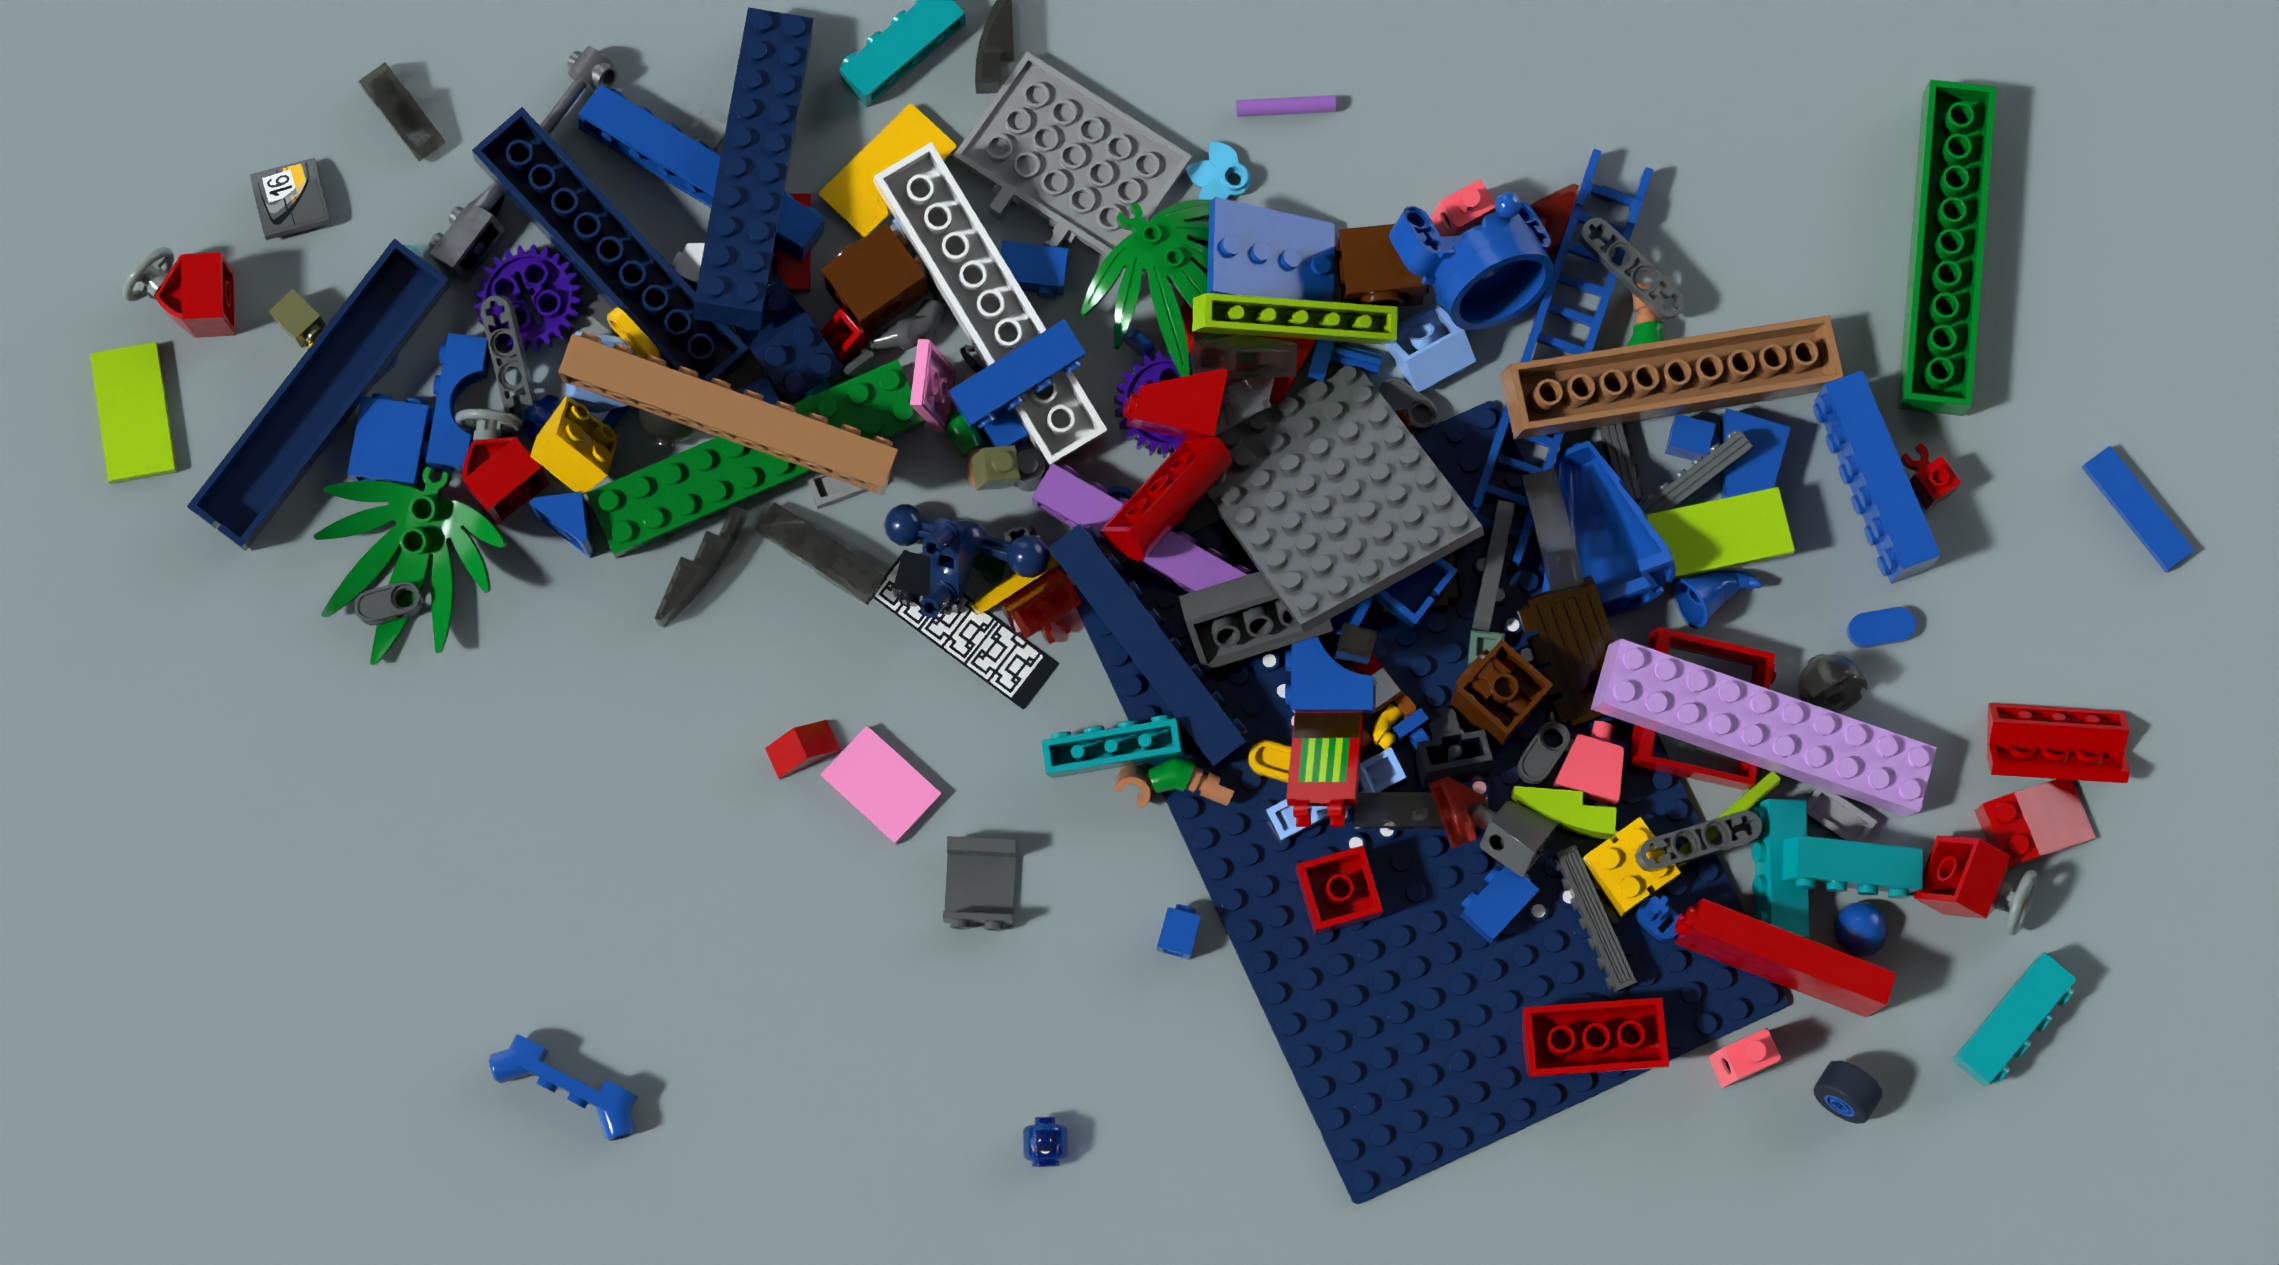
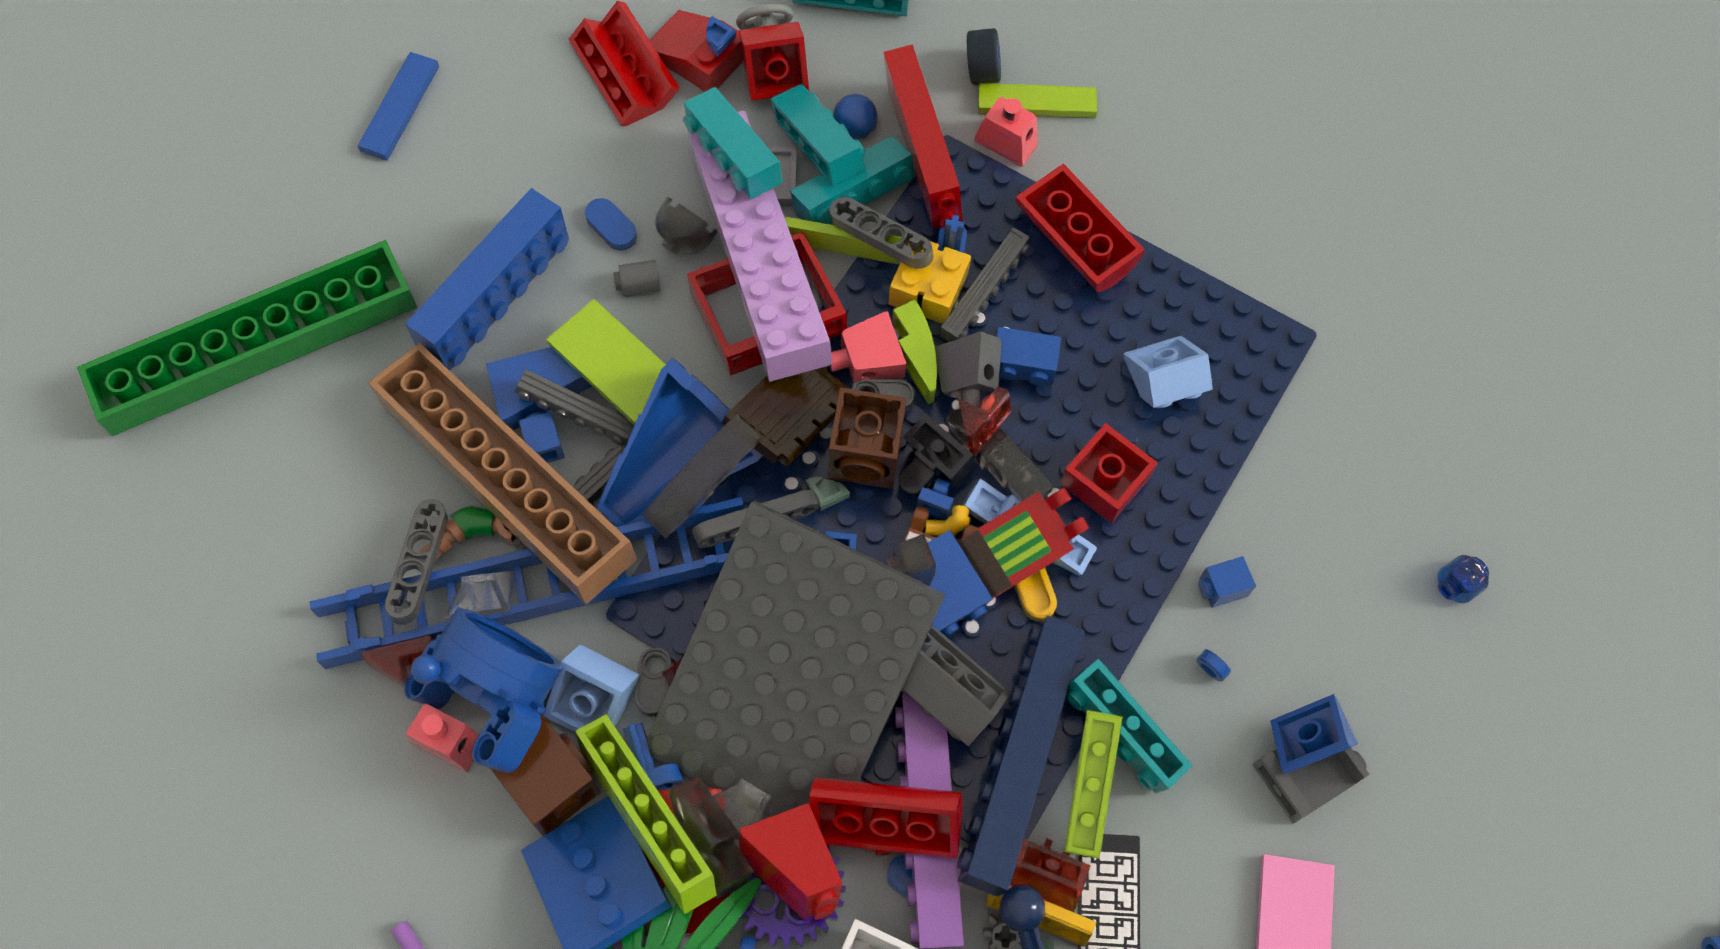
camera: 125 degrees left, 10 degrees down
(1003, 891) = (1311, 734): none -> blue slope
(1086, 683) = (1093, 784): none -> lime tile
(1116, 867) = (1213, 665): none -> blue tile
(1170, 776) = (1103, 647): nougat piece -> none
(1402, 1021) = (1169, 371): none -> light blue slope
(1567, 308) = (484, 594): none -> clear slope
(1705, 593) = (682, 347): blue hat -> none
(1771, 1121) = (1042, 99): none -> lime tile
(1803, 614) = (637, 278): none -> dark grey brick
(1874, 759) = (732, 143): none -> teal brick
(1932, 480) = (460, 242): red brick -> none
(2017, 833) = (719, 35): none -> blue tile

